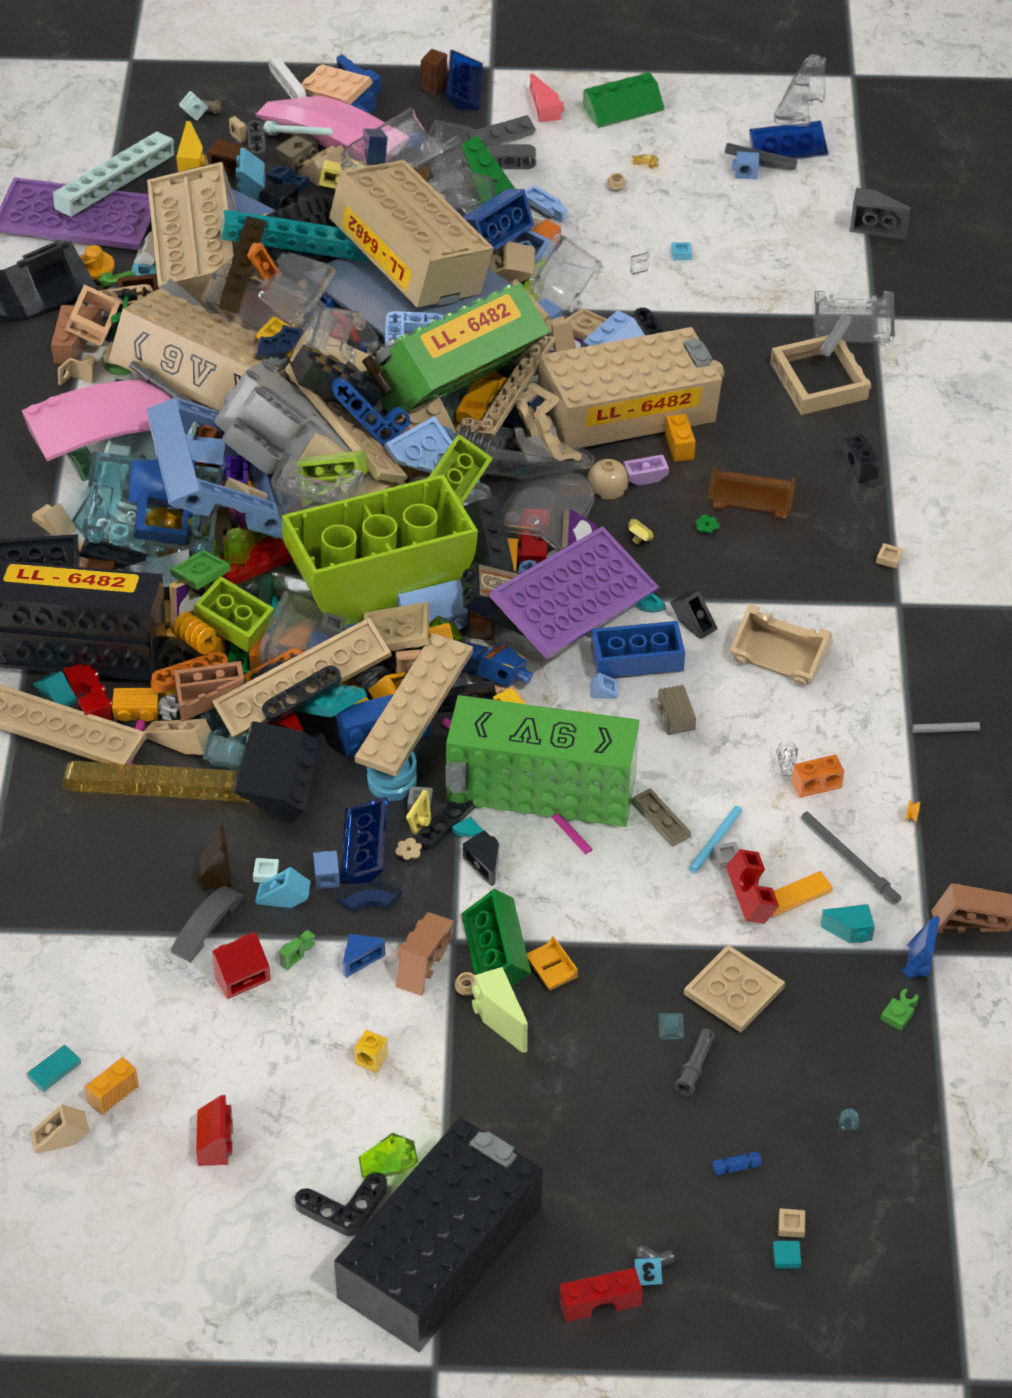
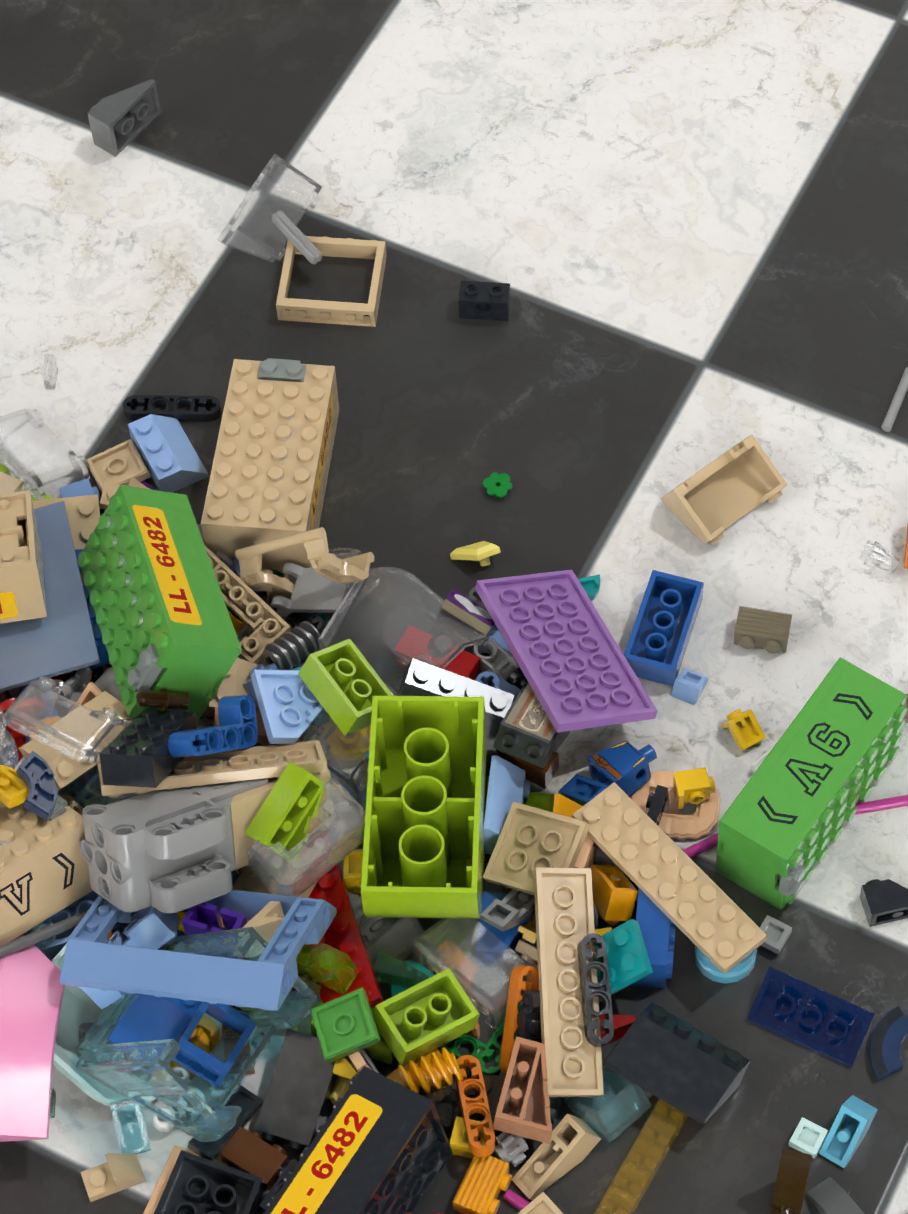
camera: 60 degrees left, 10 degrees up
(326, 869) = (836, 1072): medium blue brick -> none
(404, 322) = (64, 642): light blue beam -> none
(408, 849) = (838, 970): tan plant -> none
(420, 813) = (801, 946): light yellow piece -> none
(443, 817) = (812, 917): black beam -> none
(467, 828) = (835, 903): teal tile -> none
(608, 478) = (383, 543): tan cylinder -> none
(646, 470) = (383, 505): lavender slope -> none
(680, 437) = (357, 452): light orange brick -> none
(681, 251) = (48, 325): medium azure tile -> none
(694, 613) = (630, 553): black slope -> none
(752, 492) = (484, 413): clear orange windscreen -> none
(889, 555) = (637, 339): tan plate -> none

